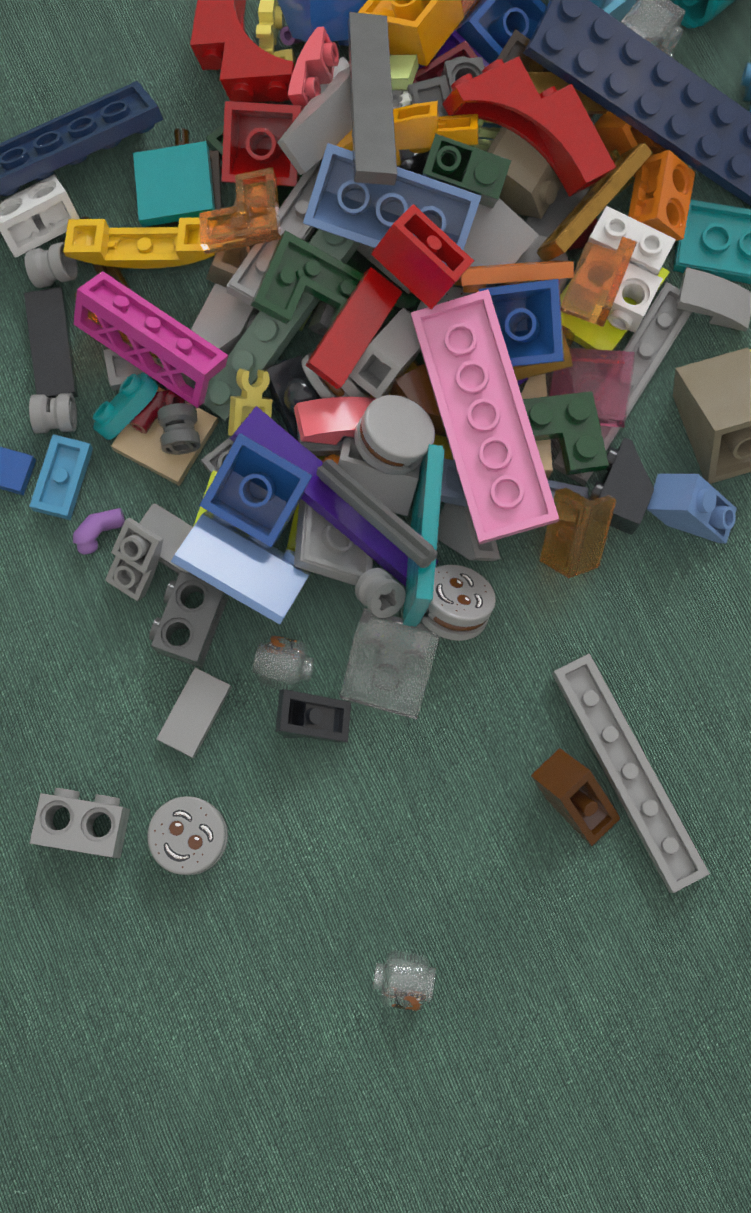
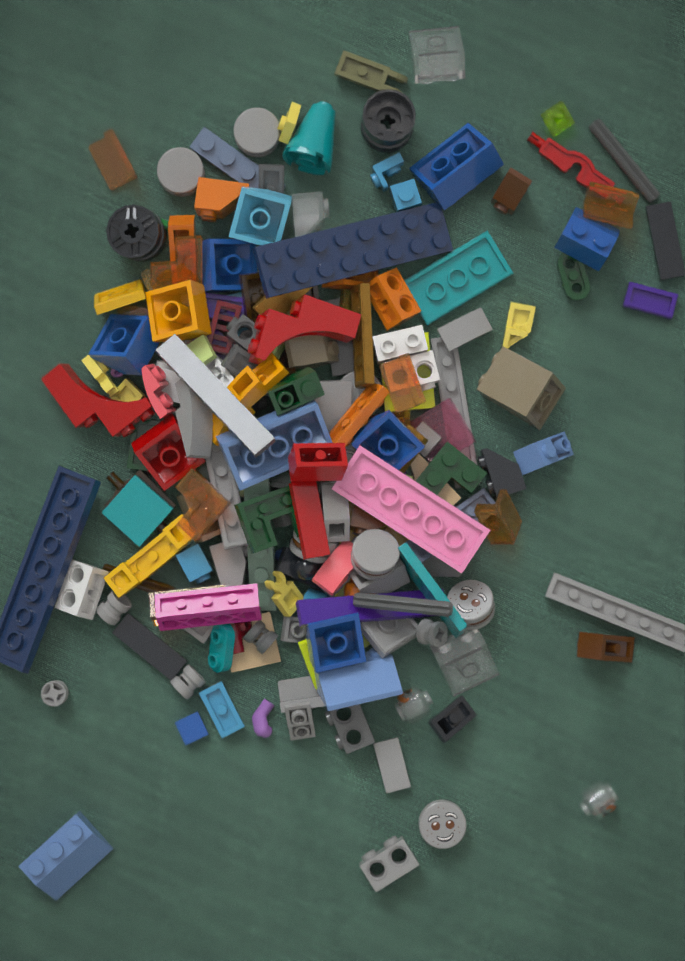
camera: 40 degrees left, 10 degrees up
(183, 292) = (195, 564): none -> dark azure brick
(569, 379) = (432, 436): none -> light grey tile

